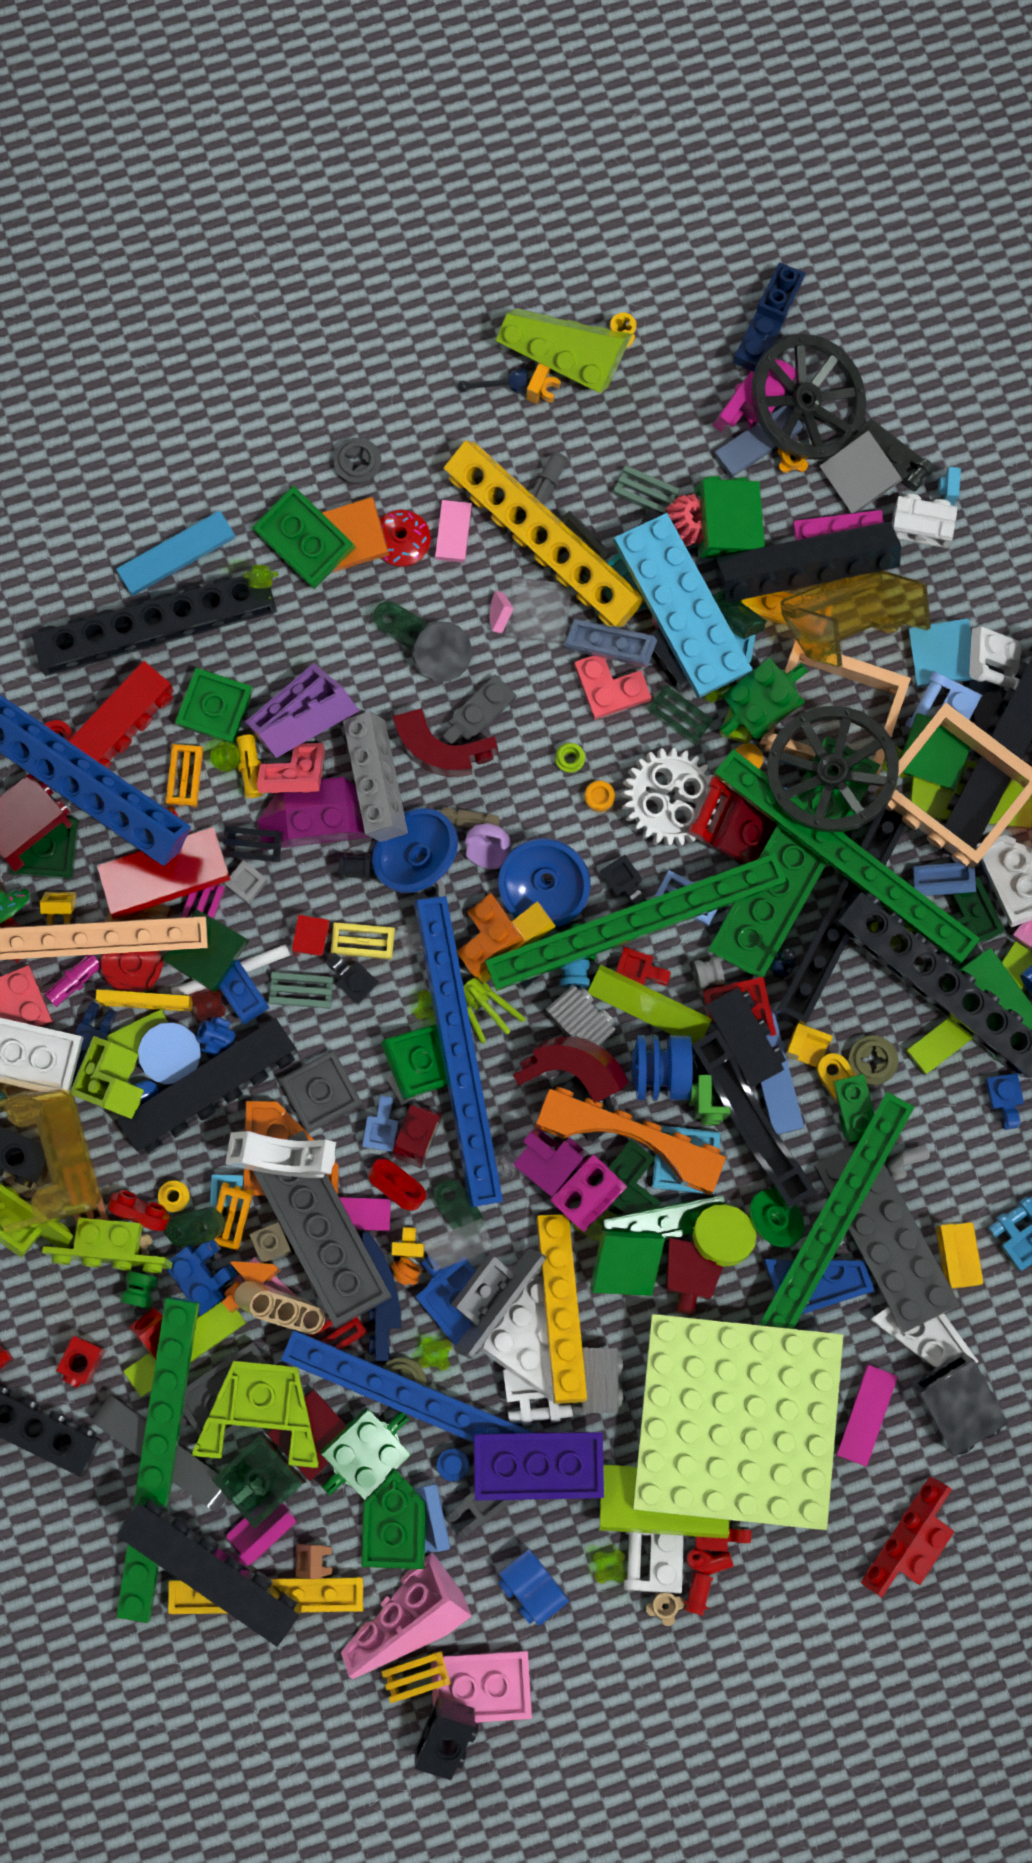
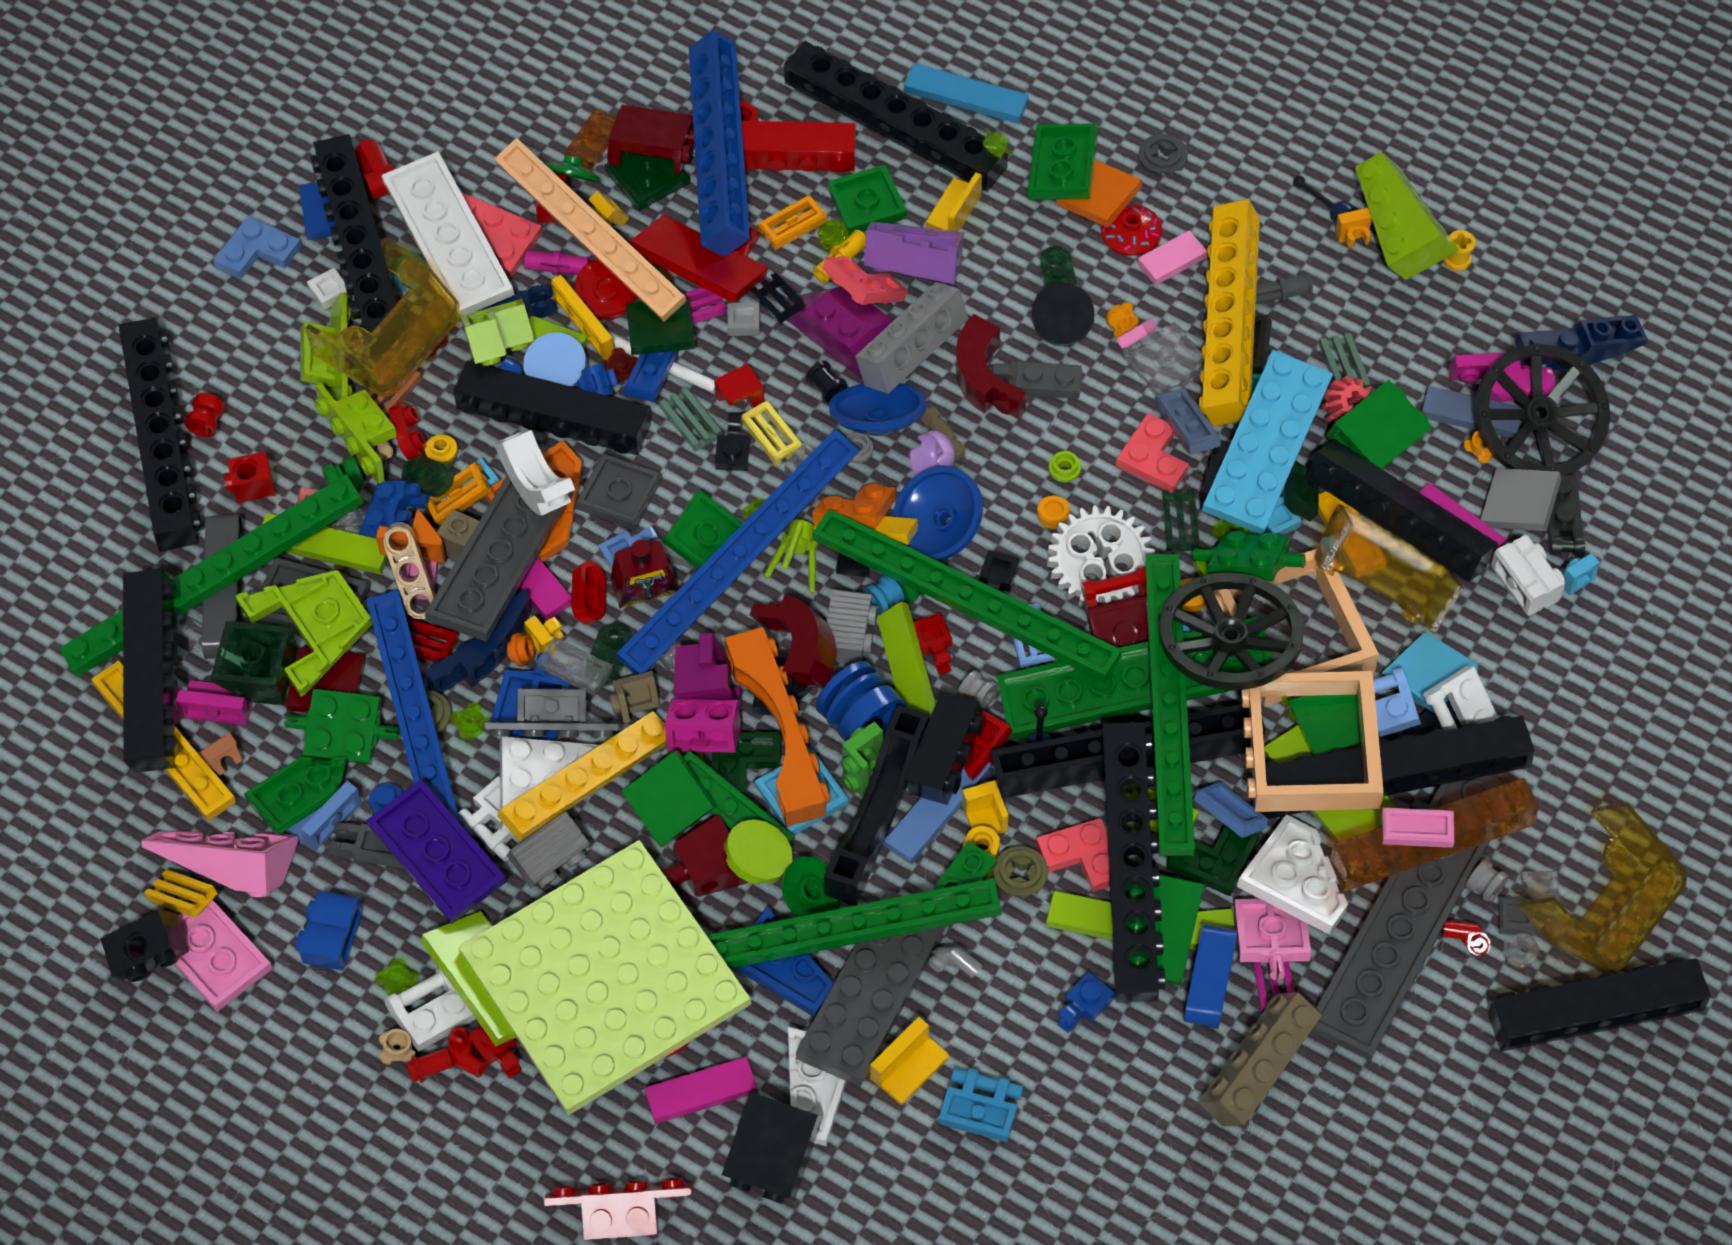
camera: 55 degrees right, 20 degrees down
(274, 648) = (956, 204): none -> yellow panel
(480, 613) = (1121, 319): none -> light orange plate
(512, 1219) = (634, 695): none -> dark tan bracket
(886, 997) = (1079, 844): none -> coral plate

